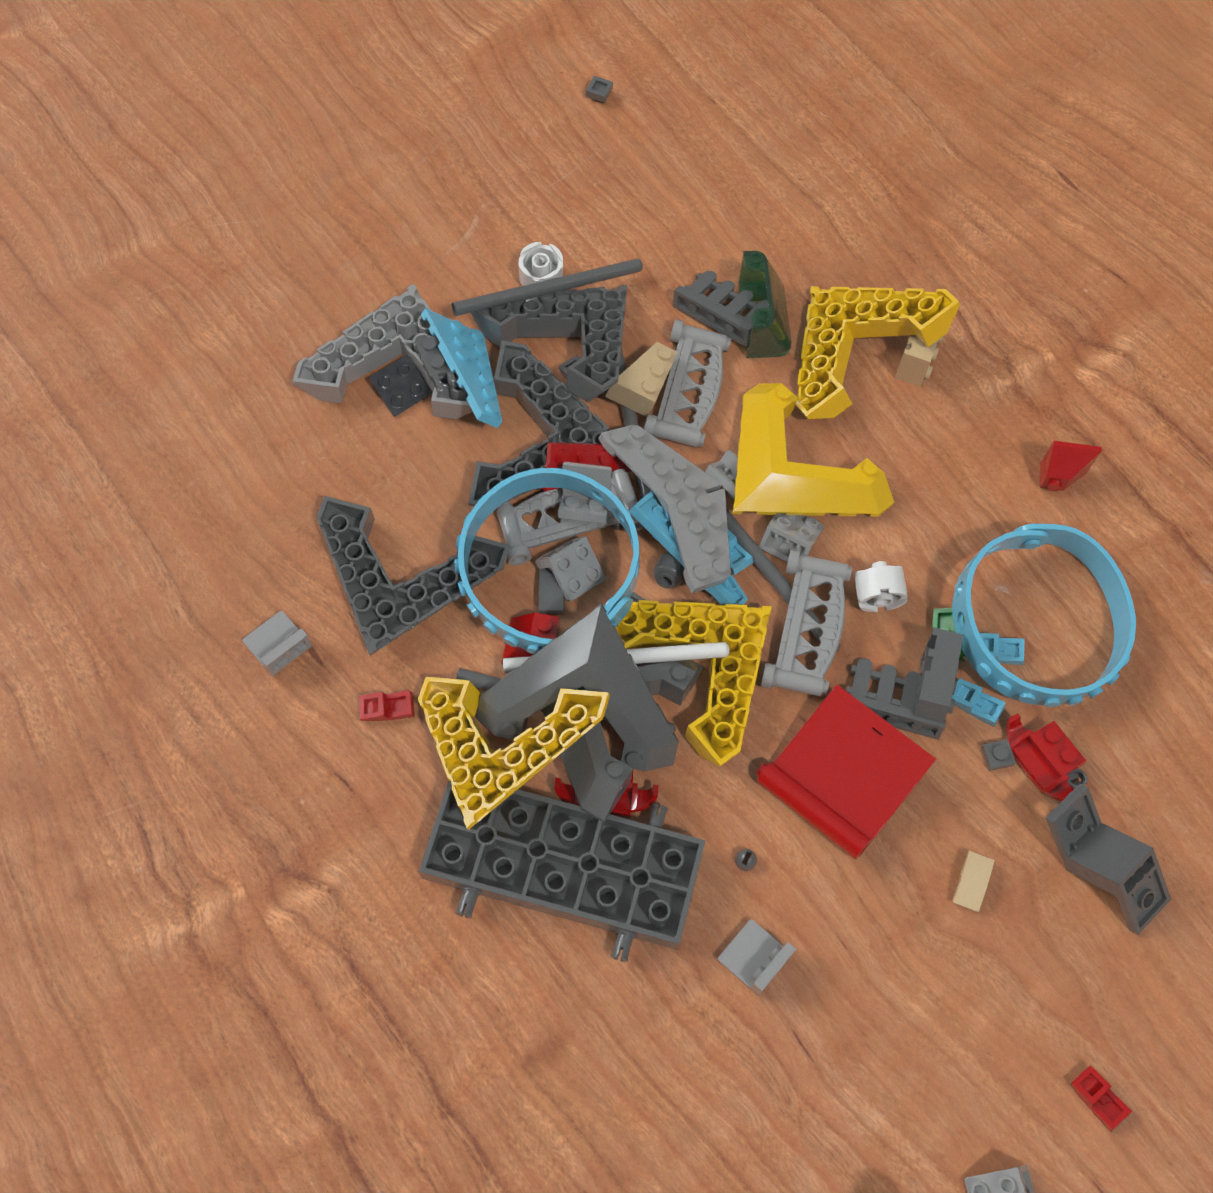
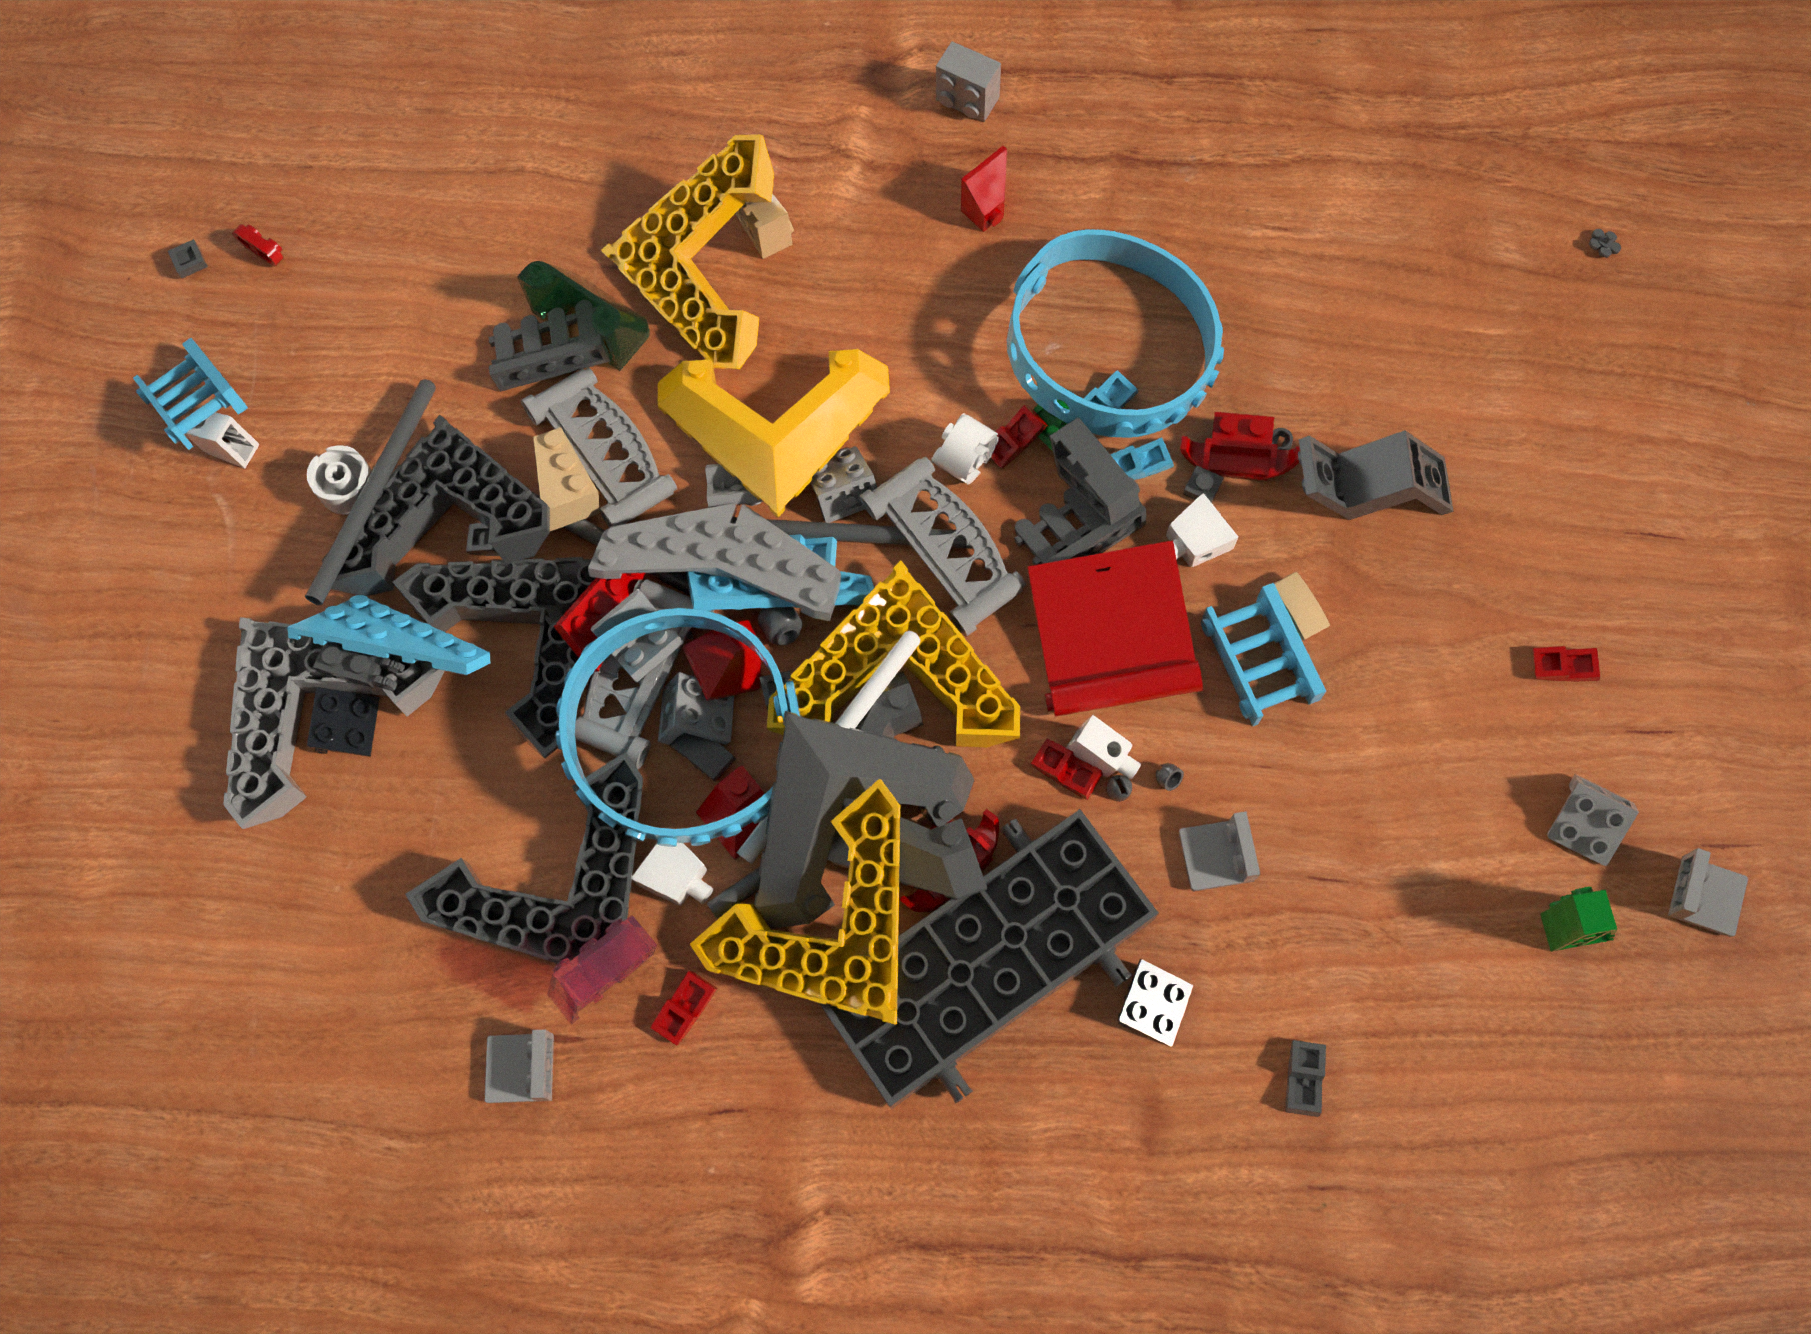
camera: 45 degrees left, 5 degrees up
(368, 633) = (599, 966): none -> clear pink wedge
(462, 635) = (673, 874): none -> white torso
(509, 180) = (209, 437): none -> white torso
(534, 162) = (214, 384): none -> medium azure fence
(612, 557) = (724, 664): none -> red slope
(622, 991) = (1155, 1003): none -> hinge
(641, 109) = (253, 241): none -> red plate
(654, 1132) = (1305, 1078): none -> dark grey slope
(729, 816) = (1066, 769): none -> red slope
(759, 815) = (1094, 742): none -> white torso
(780, 891) = (1169, 776): none -> dark grey hinge
(921, 612) = (1017, 435): none -> red slope
(943, 882) = (1282, 631): none -> medium azure fence
(961, 777) = (1201, 533): none -> white torso
(1127, 396) = (968, 81): none -> light grey brick

